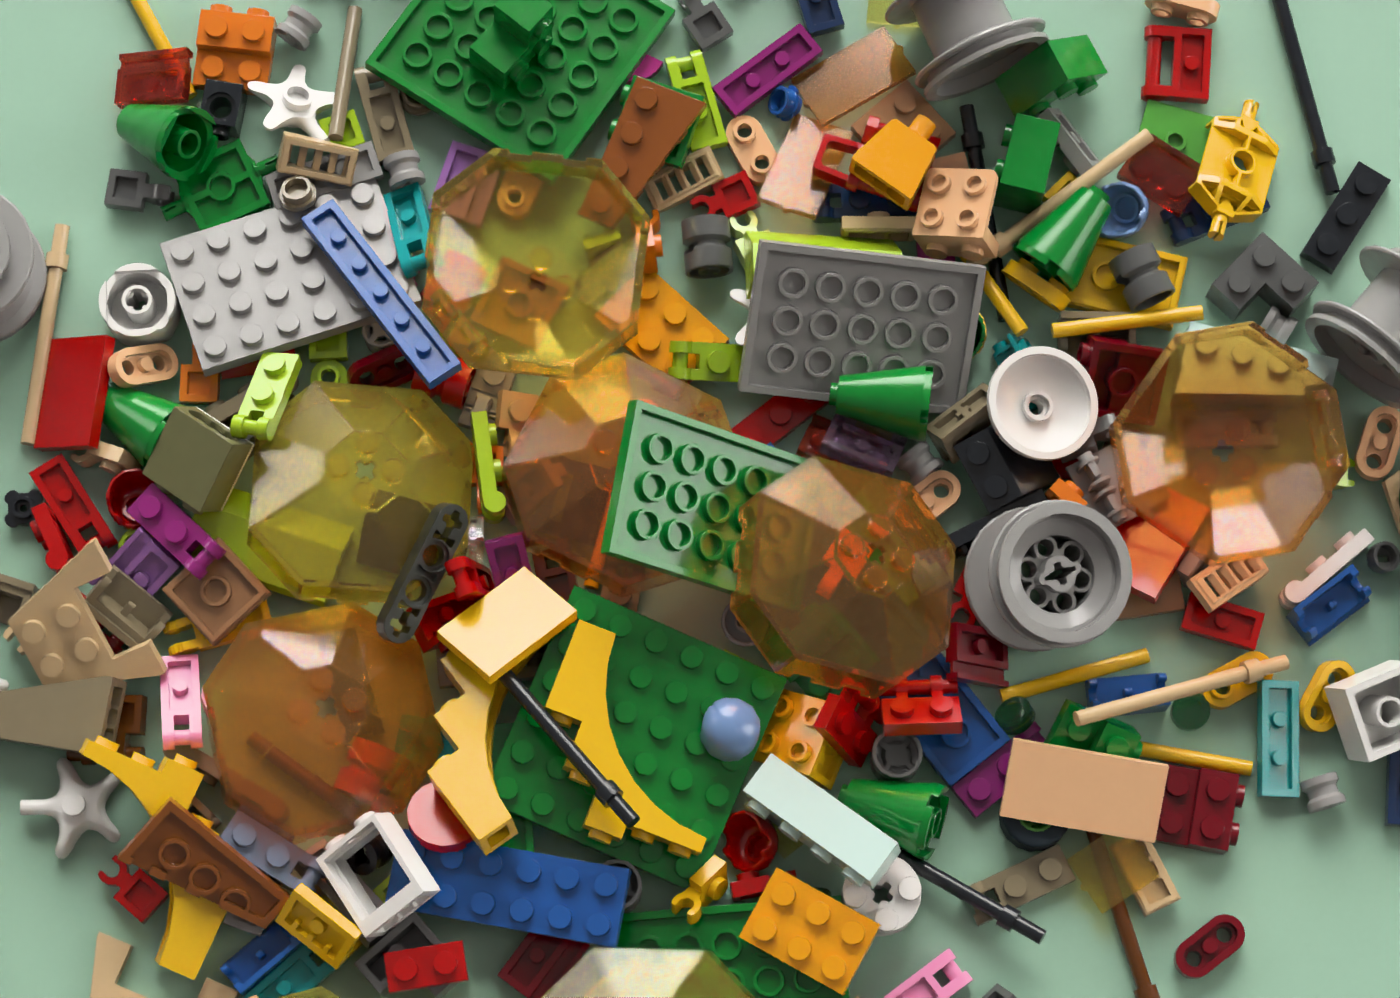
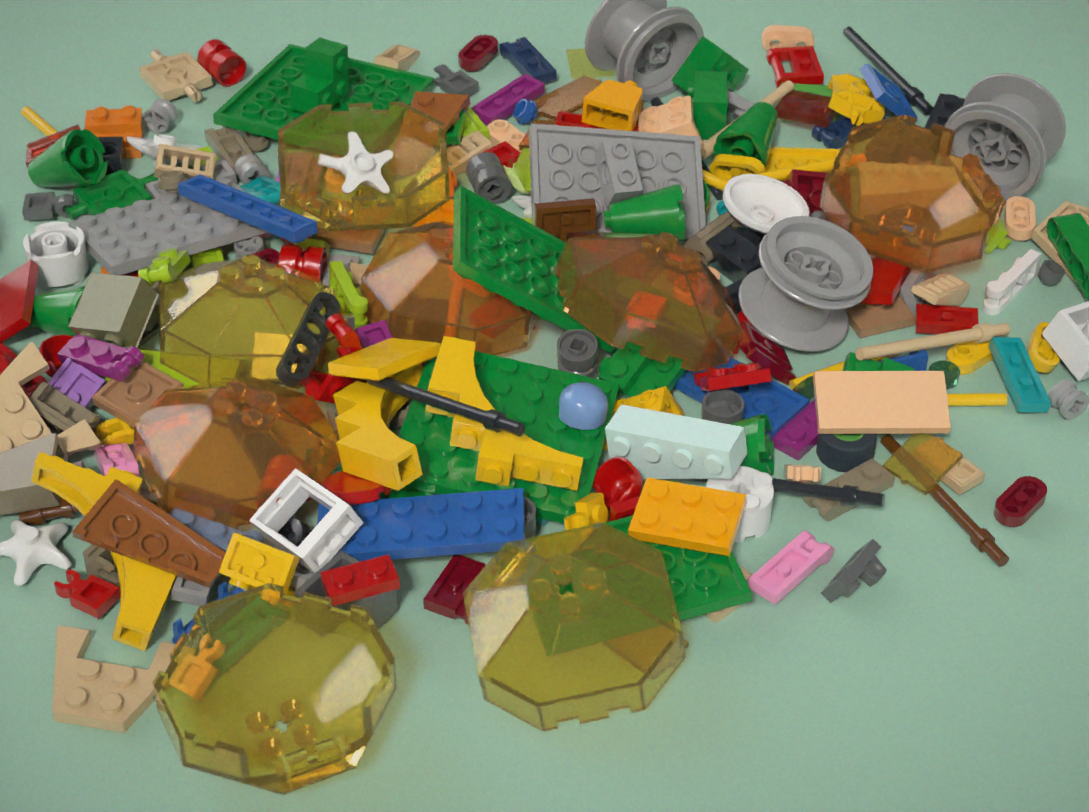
camera: 10 degrees left, 35 degrees down
(112, 458) = (34, 332): tan plate -> none
(140, 366) = (54, 279): light nougat plate -> none
(345, 73) = (199, 127): dark tan bar -> none
(535, 236) = (359, 166): none -> white animal
(761, 401) = (566, 217): none -> reddish brown plate
(849, 729) = (676, 392): red plate -> none
(860, 333) = (617, 170): none -> light grey brick
(968, 860) = (802, 473): none -> light nougat plate
(1128, 210) = (788, 128): medium blue hair -> none
(1142, 279) = (810, 146): dark grey wheel -> none
(1200, 809) = (980, 425): dark red plate -> none
(1281, 166) = (887, 92): none -> blue tile
(1329, 606) = (1023, 300): blue hinge -> none

